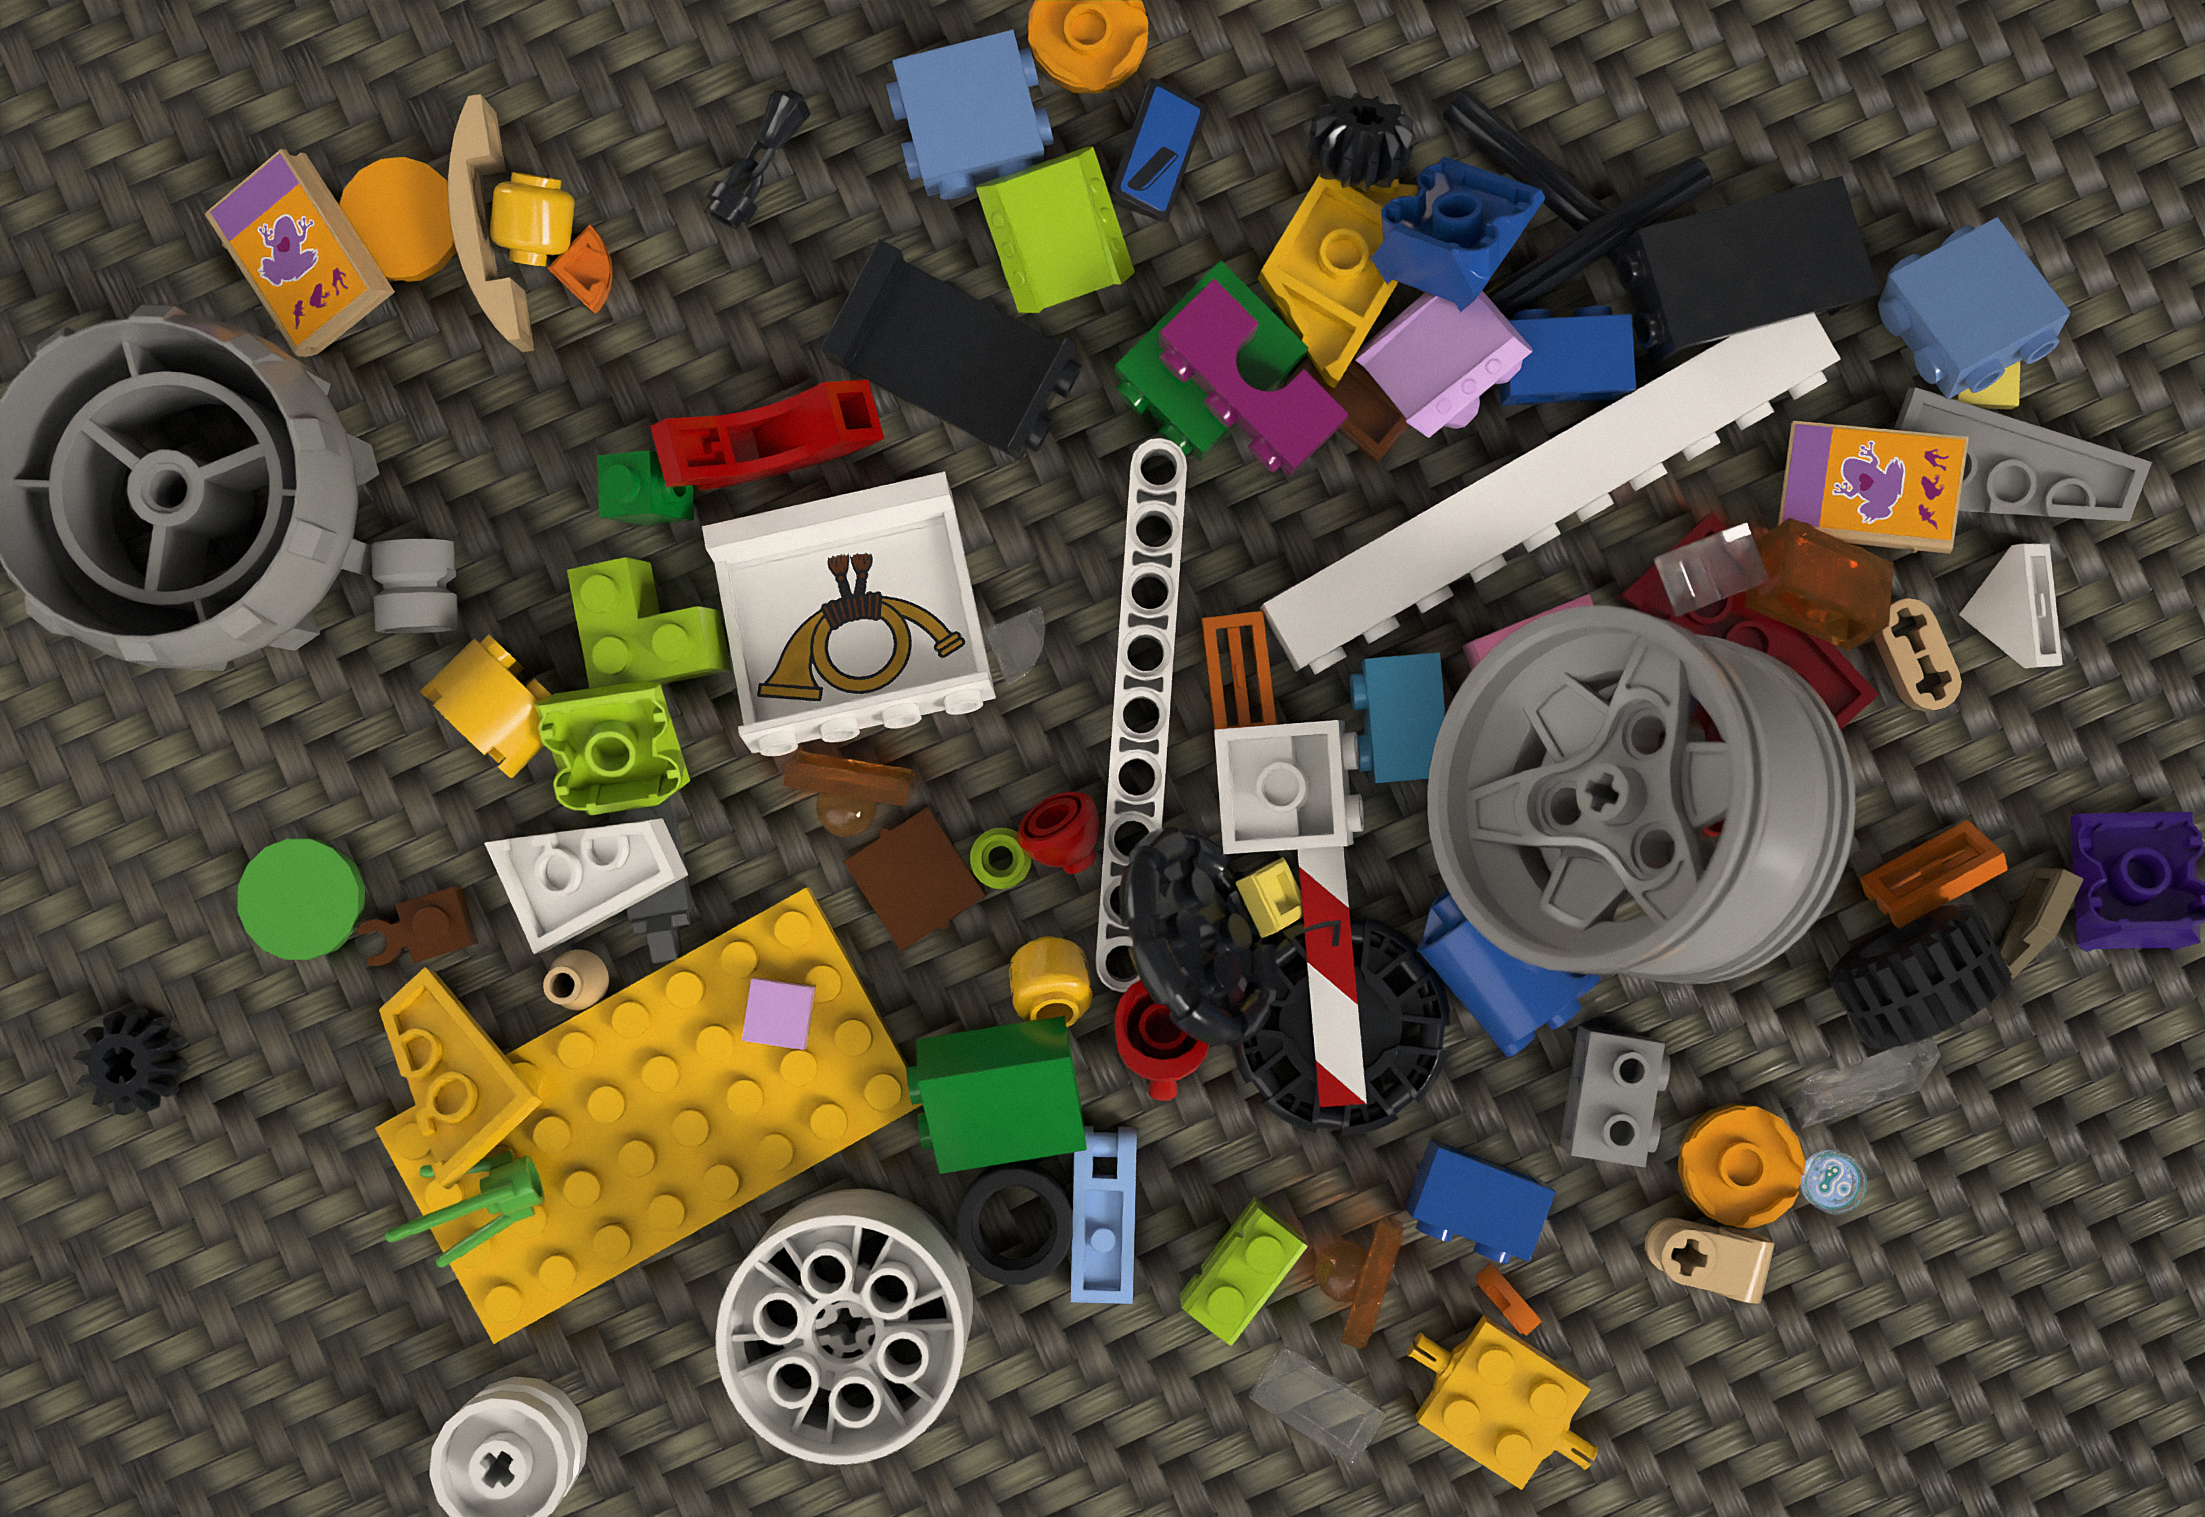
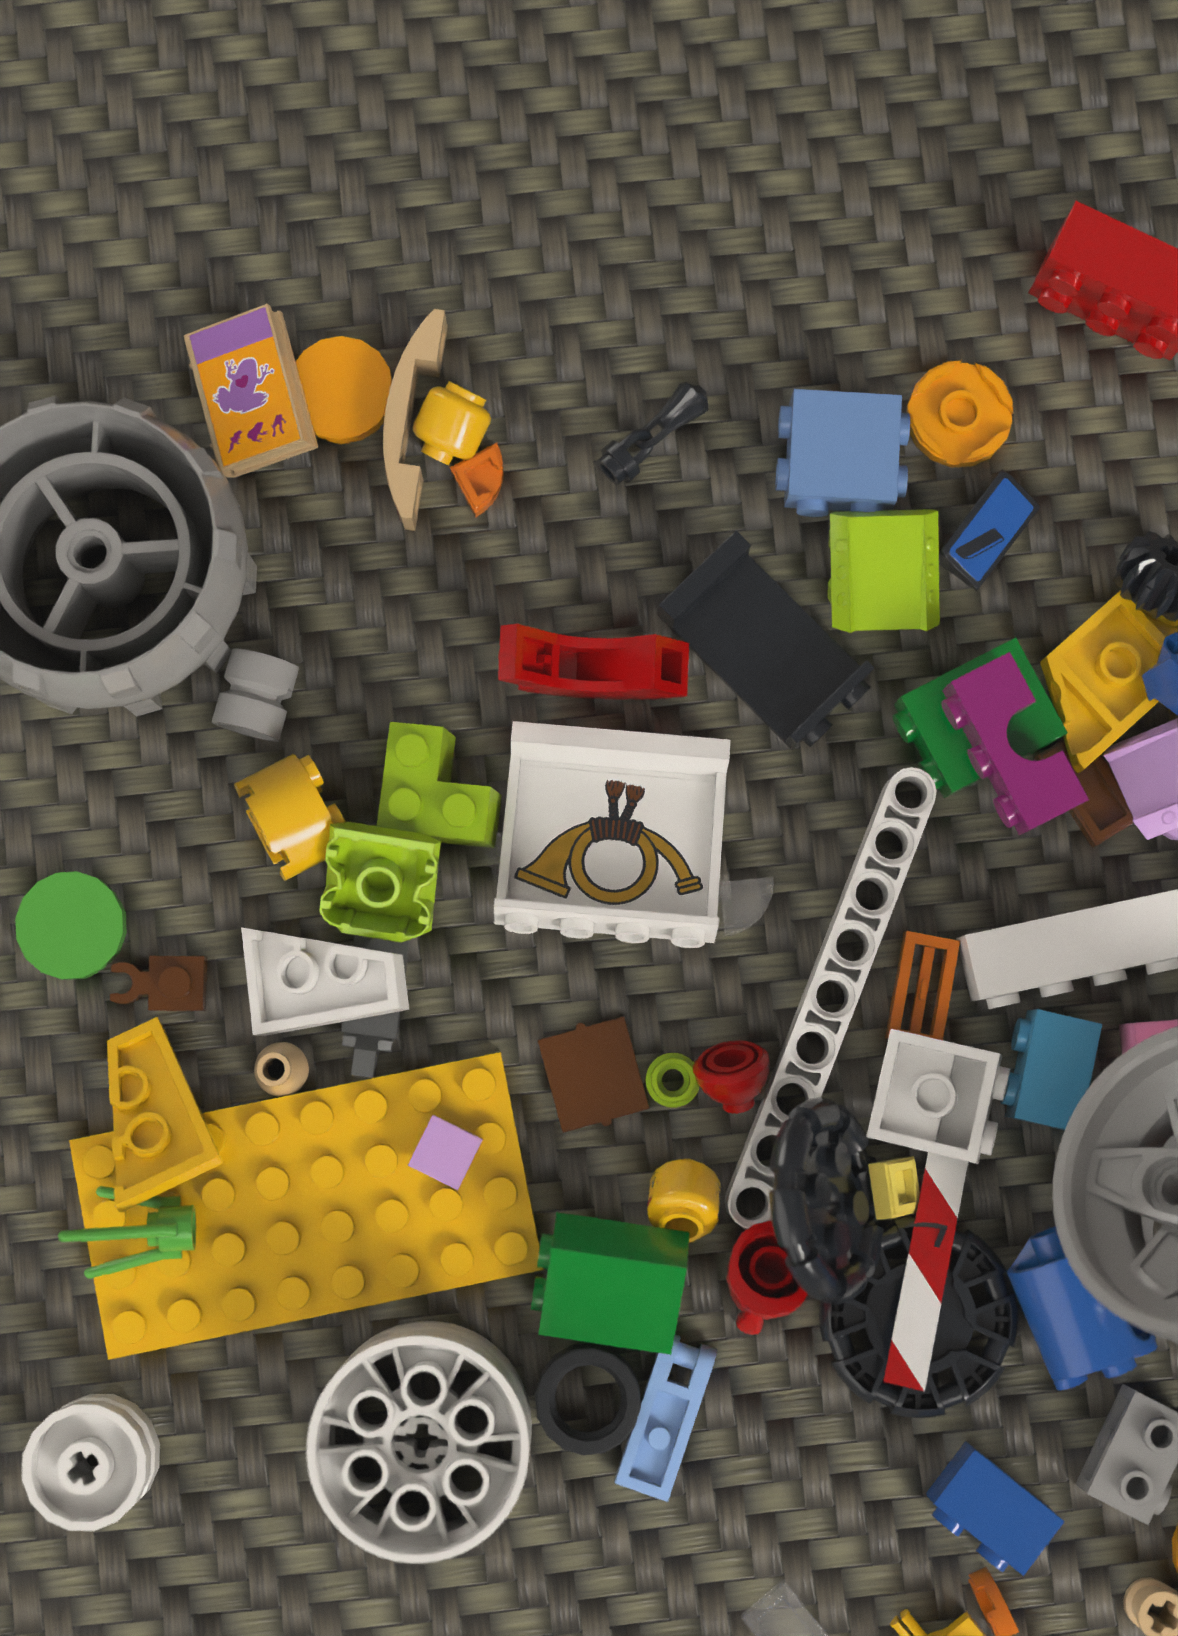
camera: 15 degrees right, 5 degrees down
(636, 493) = (470, 674): green brick -> none
(848, 789) = (563, 981): clear orange tile -> none
(1242, 1271) = (771, 1504): lime brick -> none
(1353, 1275) = (864, 1538): clear orange tile -> none

